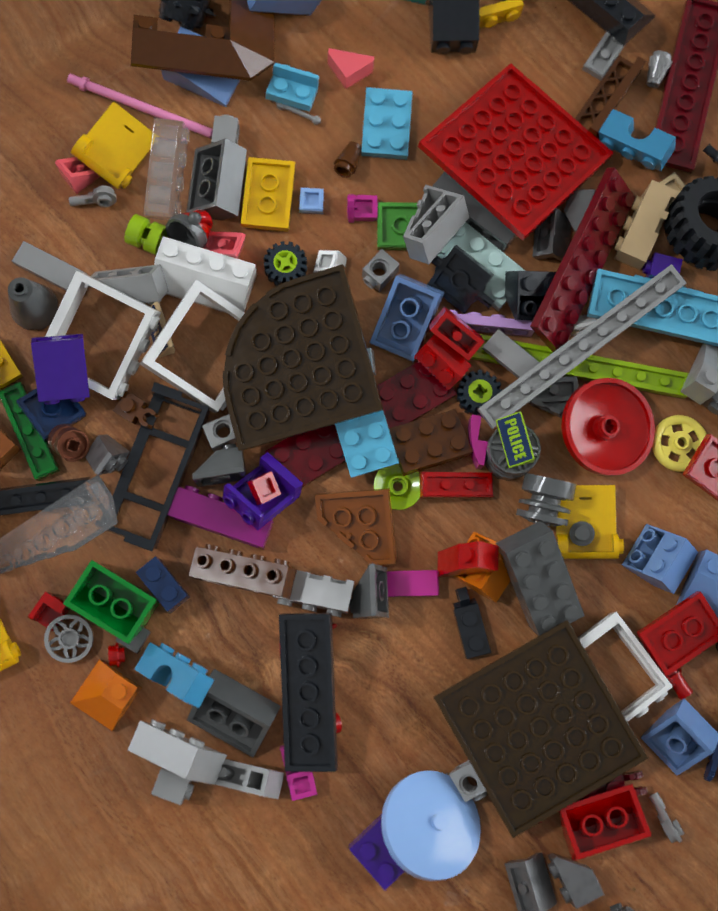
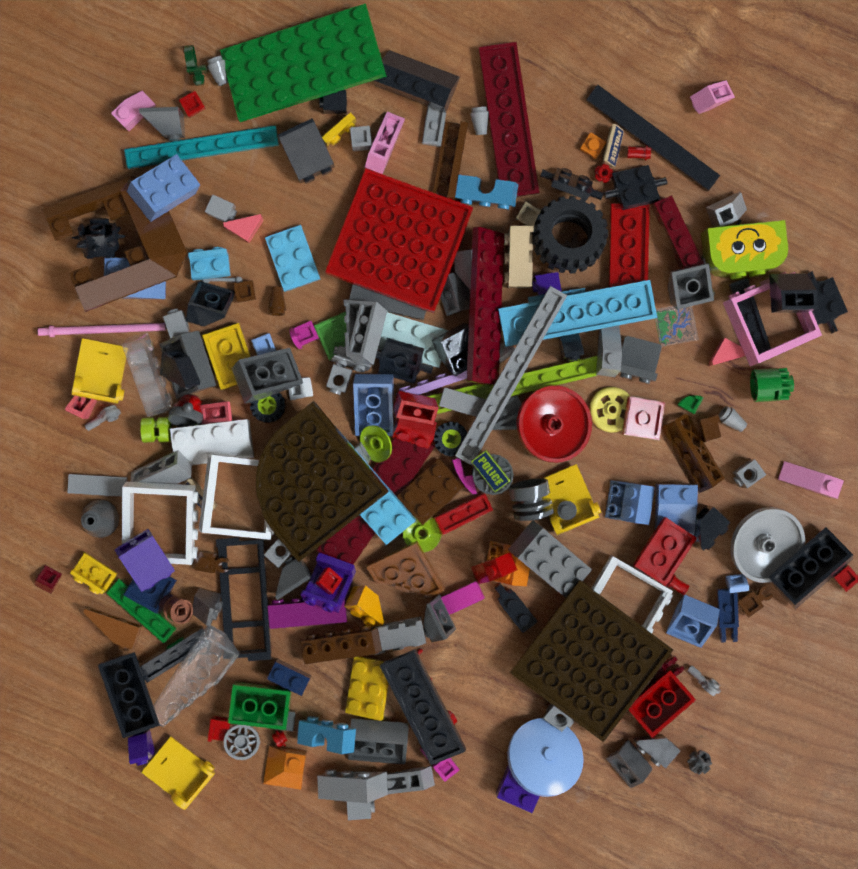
camera: 10 degrees left, 10 degrees up
(204, 173) = (179, 369): none -> black slope
(249, 642) = (367, 689): none -> yellow plate
(269, 127) = (209, 304): none -> black slope
(293, 539) = (365, 605): none -> light orange slope
(299, 225) = (266, 374): none -> dark grey slope
(317, 133) = (245, 291): none -> reddish brown plate
(331, 35) = (221, 209): none -> light grey brick
(391, 358) = (376, 443): none -> lime dish
(396, 248) = (342, 360): none -> light grey hinge
(520, 29) = (361, 138): none -> light grey brick
(541, 47) = (384, 143): none -> bright pink slope
(662, 349) = (571, 347): none -> black slope

